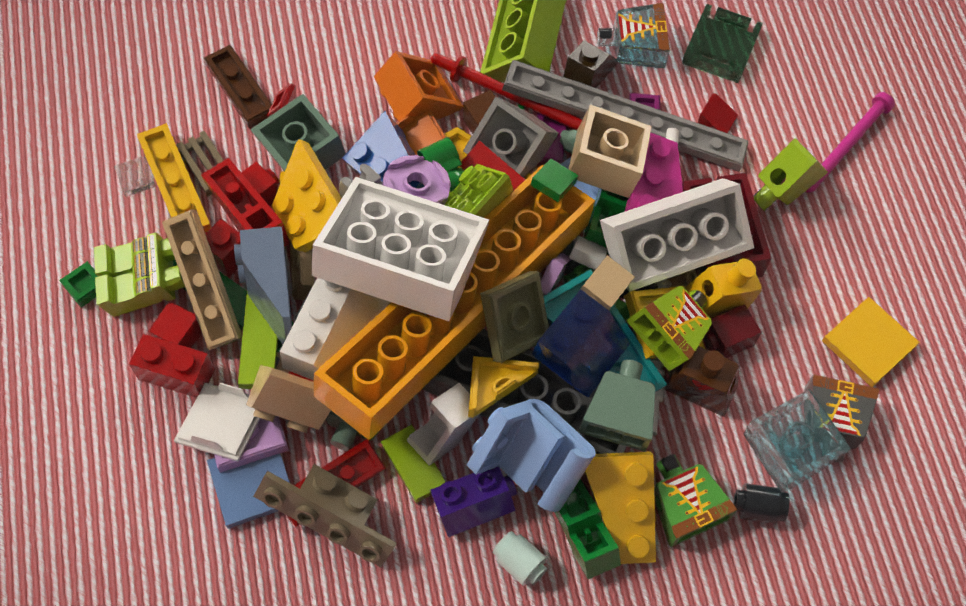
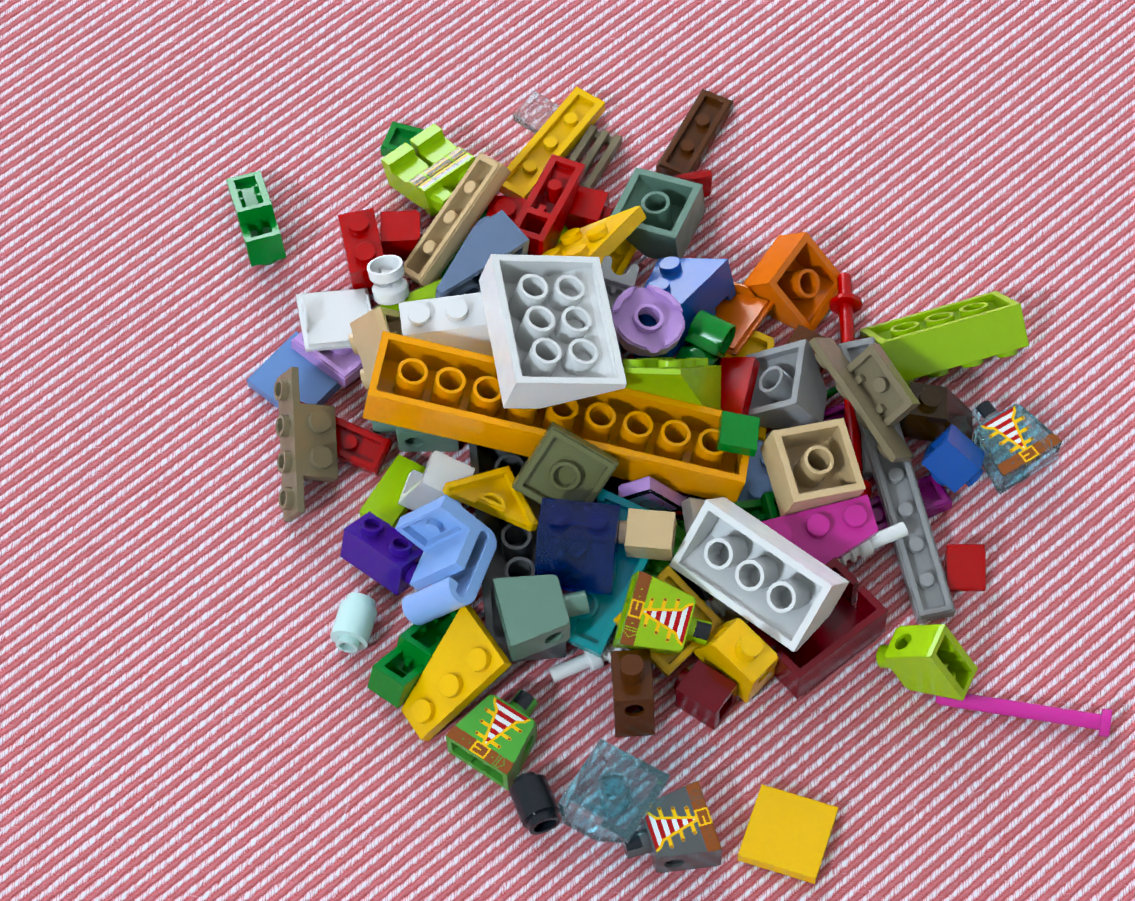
camera: 65 degrees right, 5 degrees down
(72, 433) = (256, 218): none -> green slope
(223, 358) = (388, 285): none -> white wheel
(564, 78) = (873, 390): none -> dark tan bracket
(635, 72) = (953, 459): none -> blue brick
(723, 40) = (1075, 531): clear green container -> none

